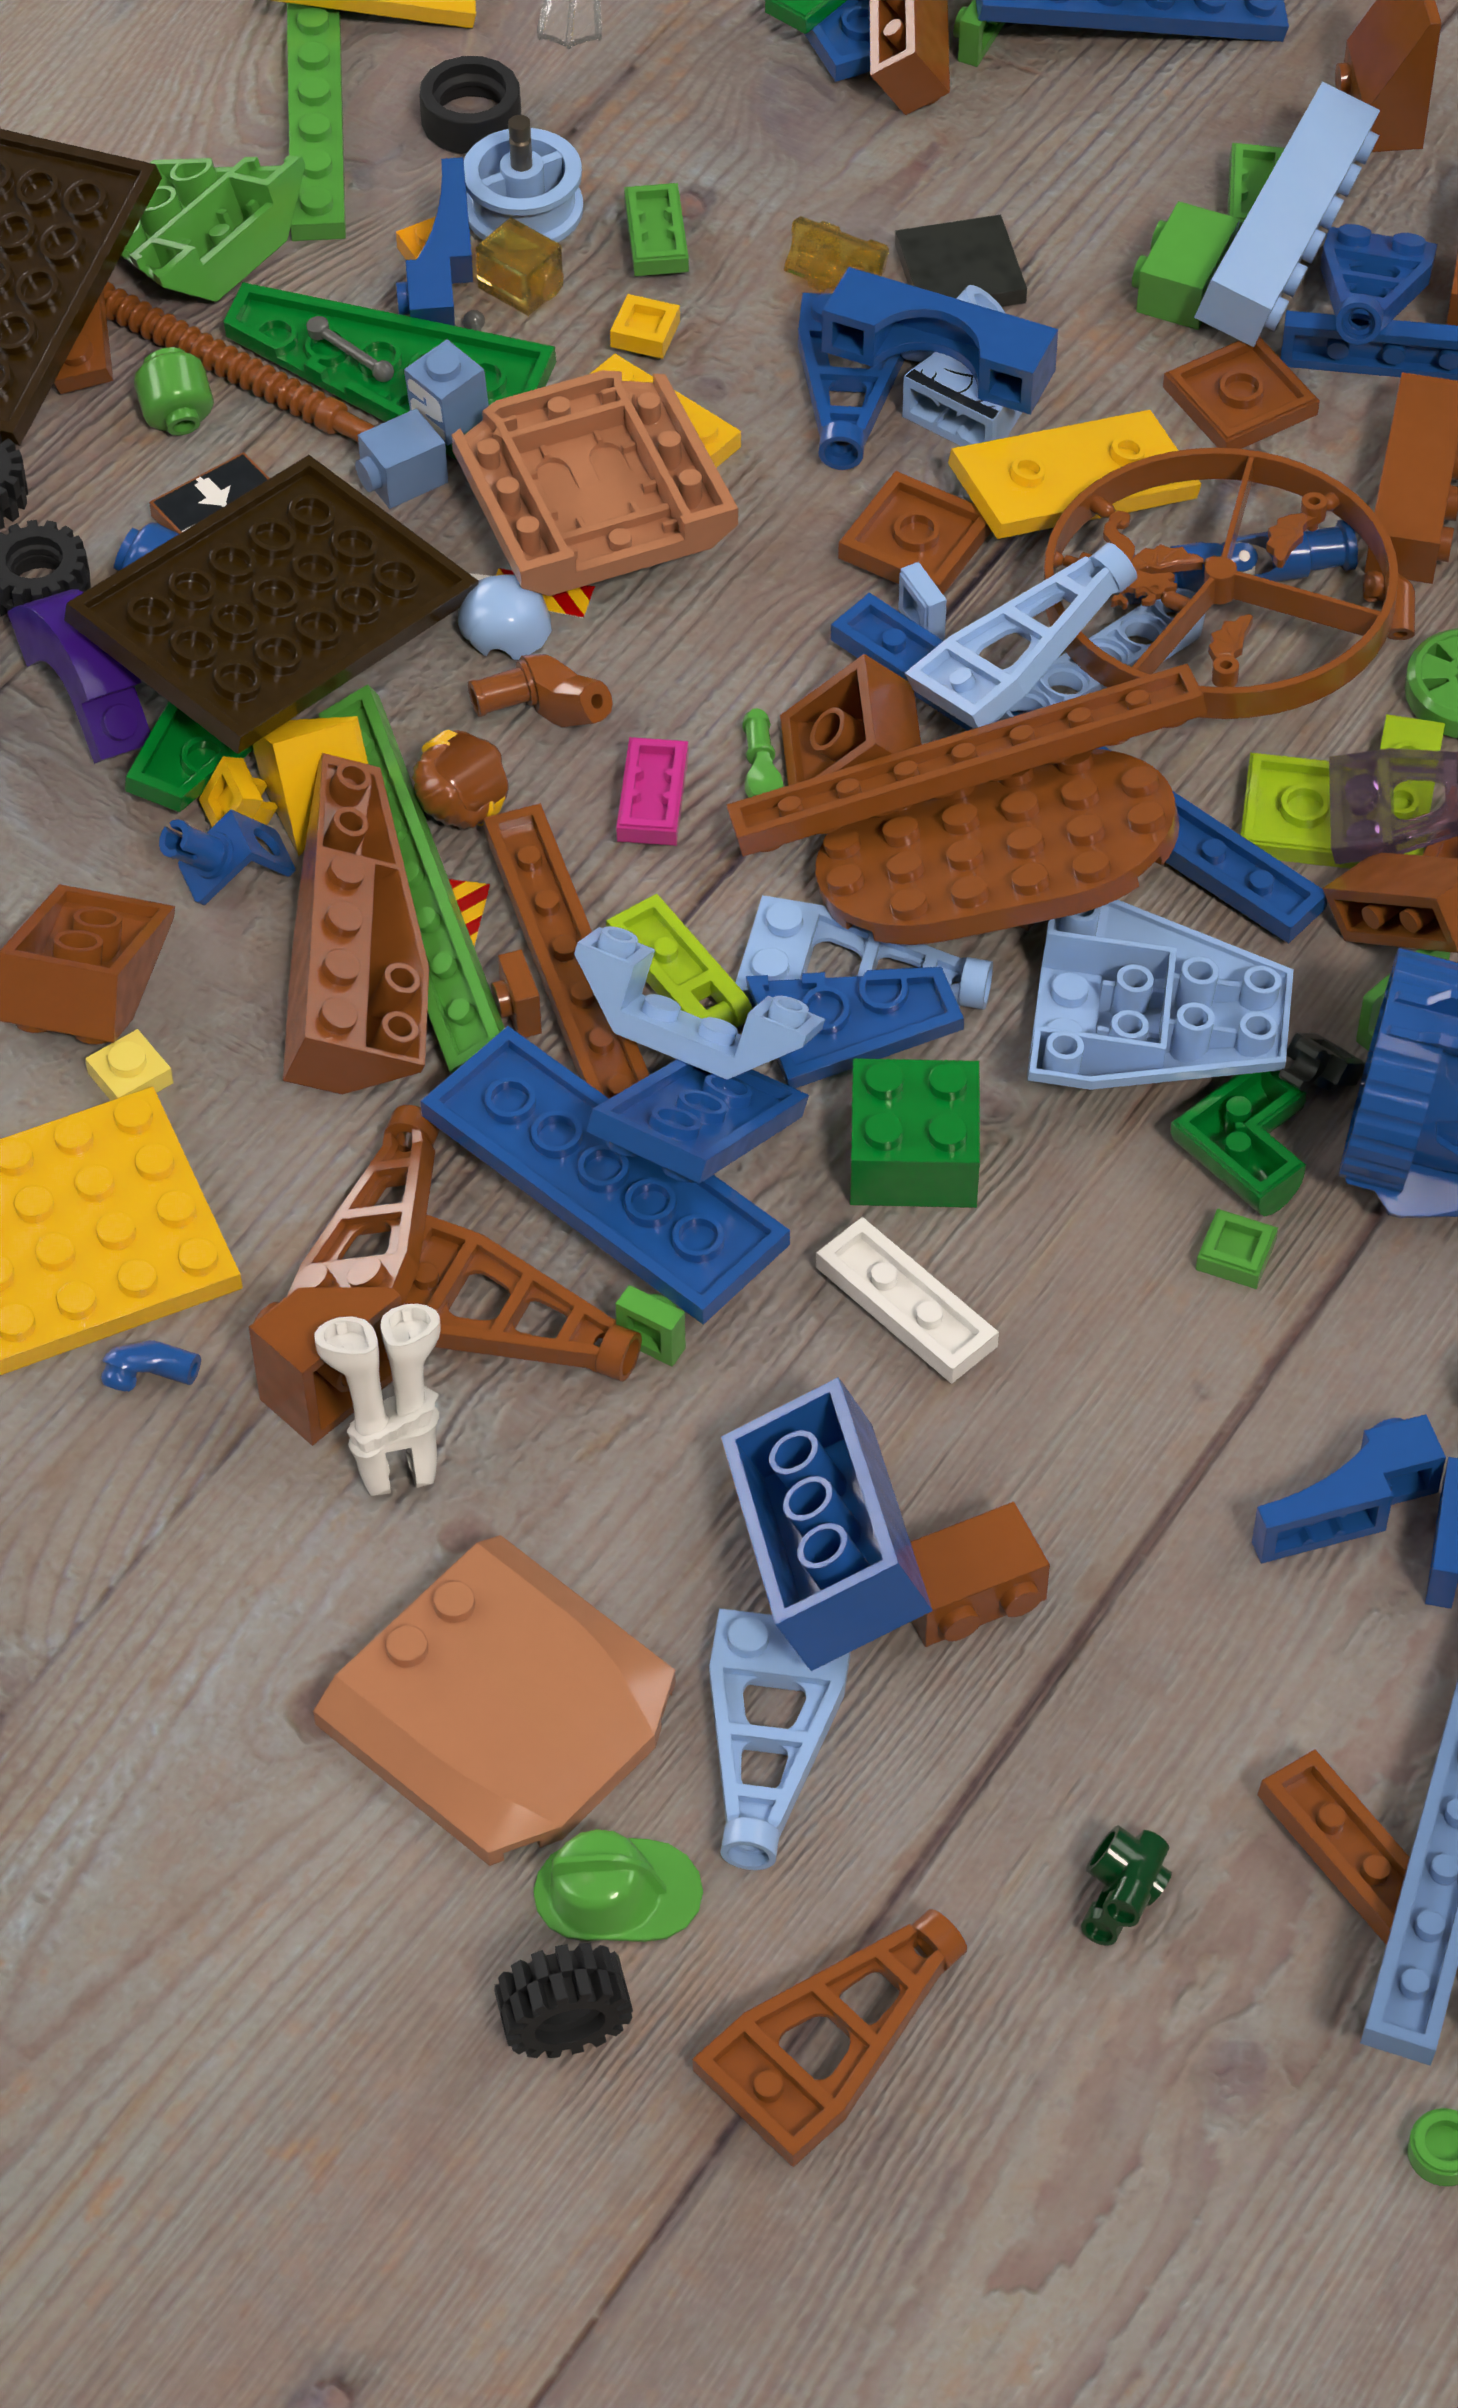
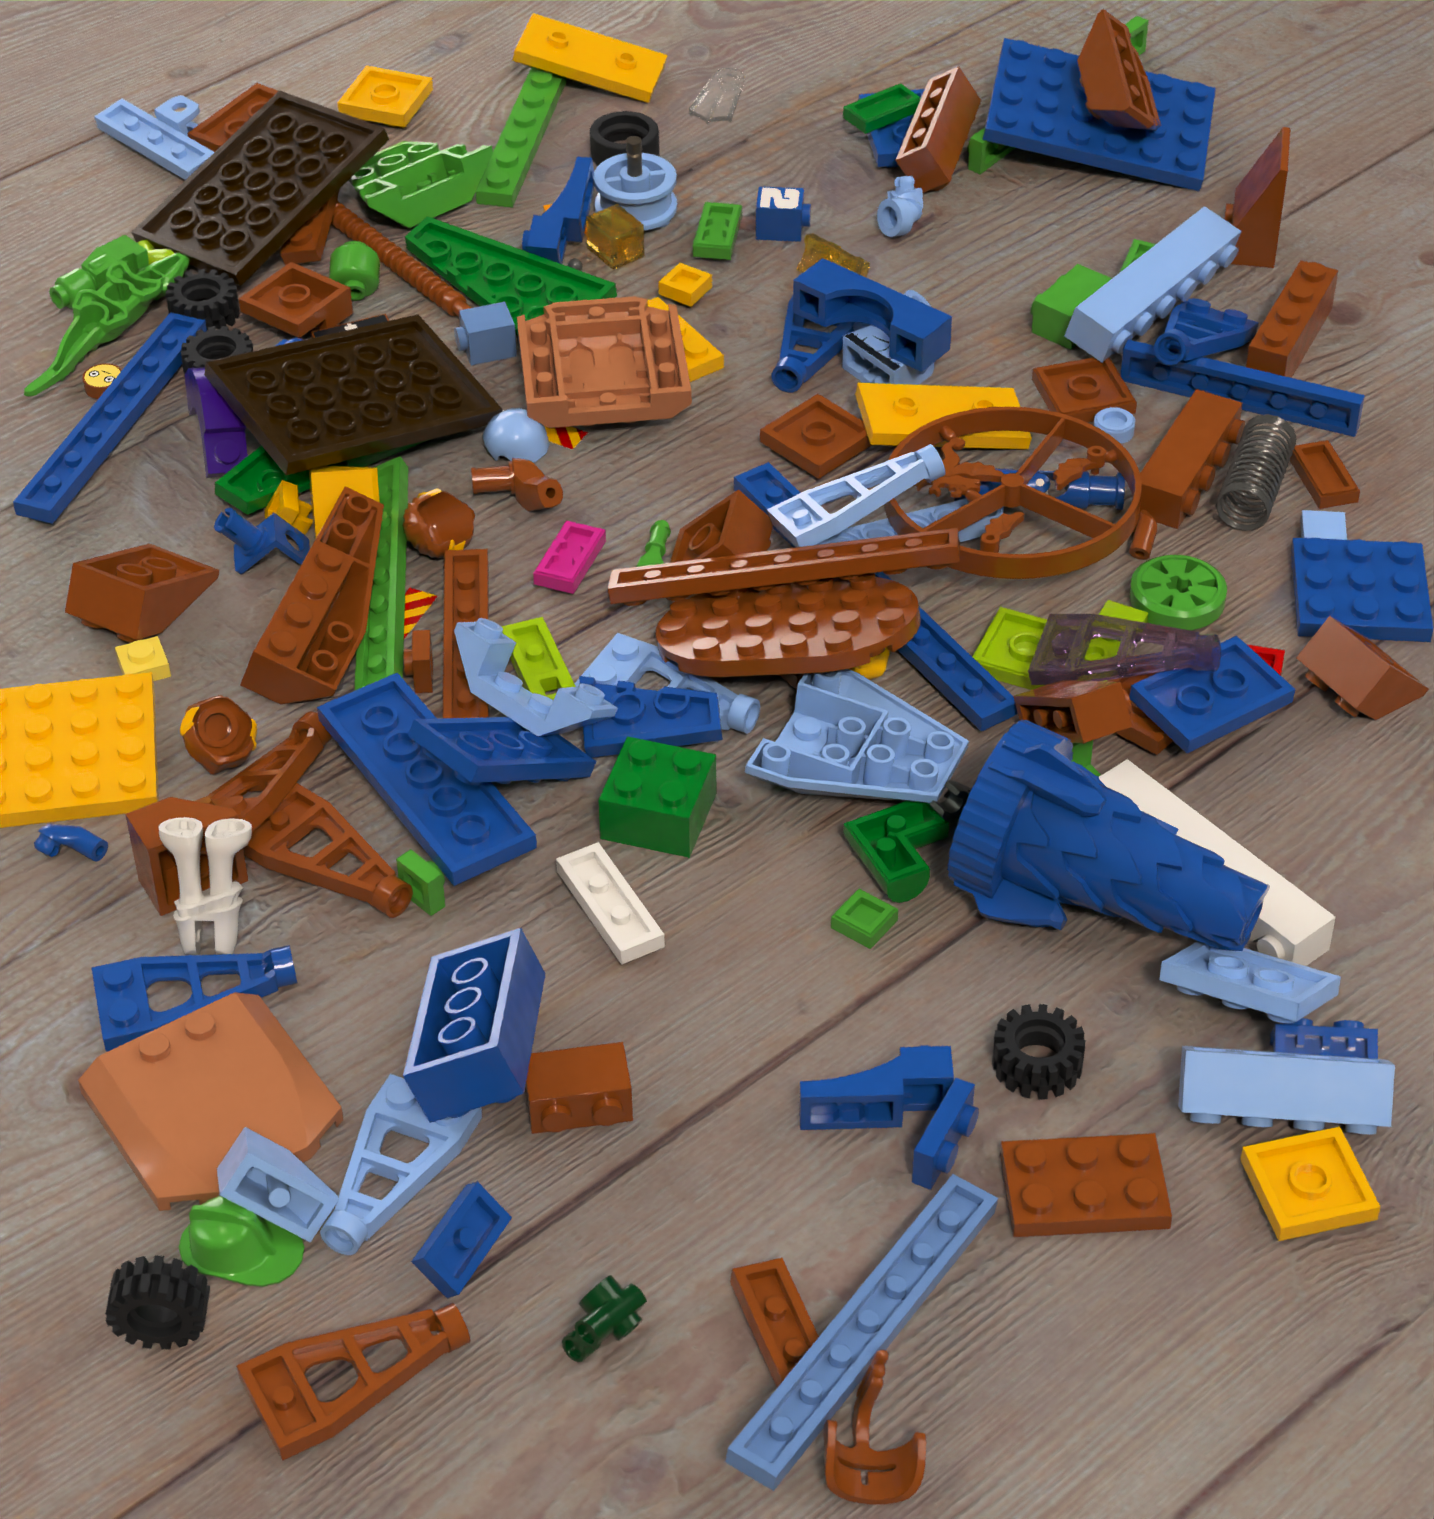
camera: 15 degrees right, 10 degrees down
(95, 87) = (385, 96): none -> yellow plate
(116, 458) = (298, 300): none -> dark orange plate
(291, 1164) = (218, 733): none -> dark orange hair
(319, 329) = (464, 249): dark grey hinge -> none
(325, 1587) = (124, 985): none -> blue plate
(447, 390) = (525, 289): medium blue brick -> none
(643, 1802) = (274, 1185): none -> light blue slope
(736, 187) = (781, 214): none -> blue brick
(899, 147) = (901, 208): none -> light blue arm
(905, 1818) = (461, 1239): none -> blue plate
(922, 599) = (802, 469): light blue tile -> none
(962, 254) = (929, 276): pearl dark grey tile -> none
(1300, 439) = (1117, 423): none -> light blue tile

